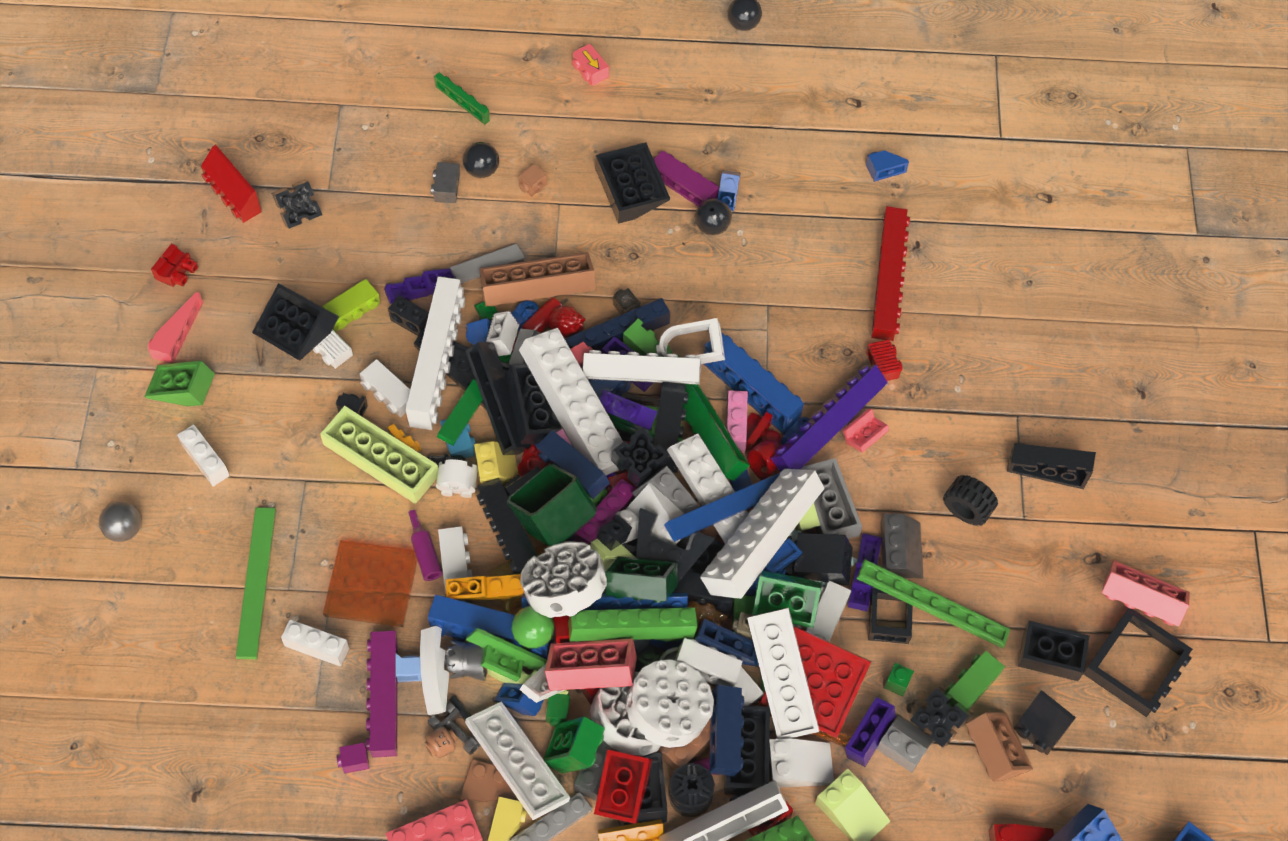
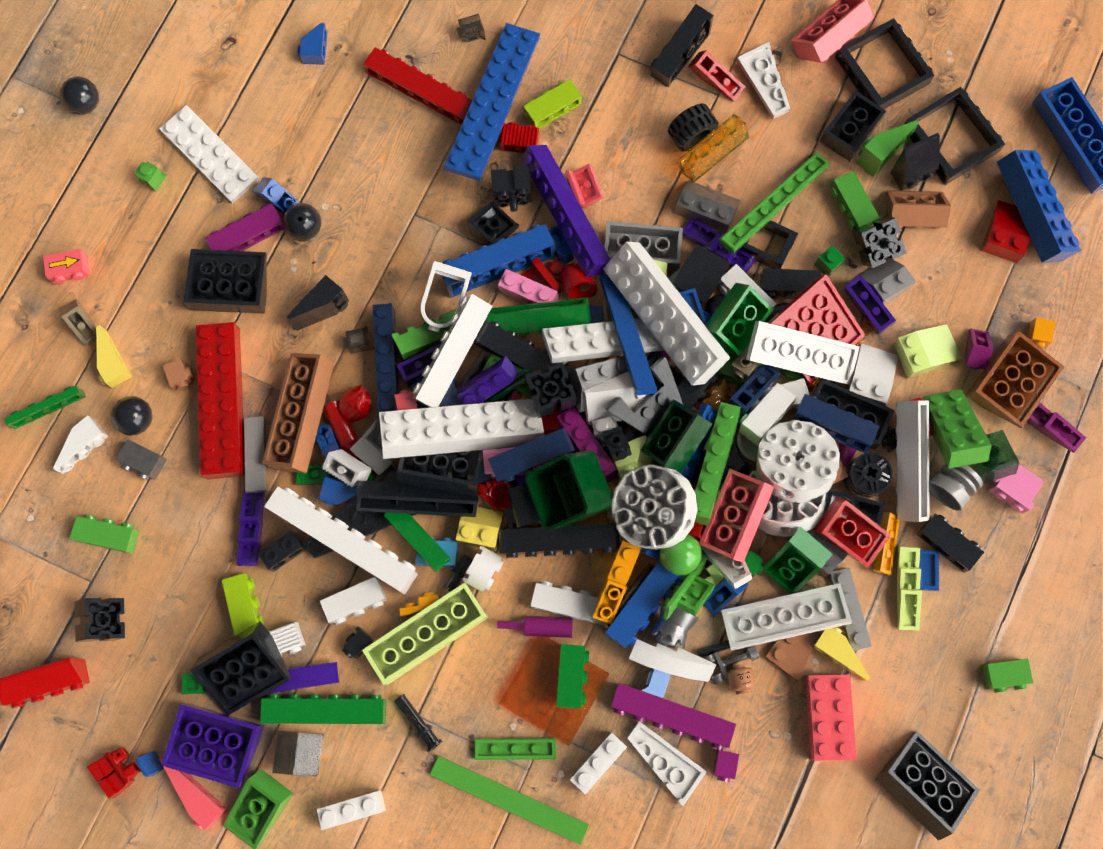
camera: 60 degrees left, 15 degrees up
(189, 288) = (150, 764): none -> blue slope
(222, 327) = (212, 745): none -> dark purple slope
(237, 395) = (298, 753): none -> clear smoke slope
(265, 293) = (191, 685): none -> green plate
(282, 403) = (323, 711): none -> green brick
(293, 487) = (425, 730): none -> black pin
(304, 571) = (515, 749): none -> bright green tile
(306, 378) = (310, 677): none -> dark purple slope
(335, 711) = (670, 765): none -> white wing
(372, 182) = (104, 533): none -> bright green brick
(385, 587) = (572, 676): none -> green brick
(444, 134) = (81, 440): none -> white slope
(523, 126) = (109, 361): none -> light yellow slope
(524, 218) = (220, 401): none -> red brick
(546, 92) = (79, 321): none -> dark tan slope
(643, 257) = (319, 304): none -> black slope
(700, 91) = (151, 174): none -> bright green window
(743, 127) = (209, 154): none -> white plate
(787, 366) = (491, 225): none -> black slope
(829, 367) = (511, 187): none -> black brick
(854, 638) = (786, 282): none -> black brick
(906, 321) = (492, 102): none -> blue plate
(932, 375) = (552, 104): none -> lime brick
(961, 529) = (713, 148): none -> clear yellow brick
(970, 280) = (471, 28): none -> clear smoke window
(1039, 508) = (716, 75): none -> red slope
(1041, 677) = (884, 146): none -> bright green slope
(1064, 551) = (763, 75): none -> white wing
(1081, 787) = (984, 126): none -> black window

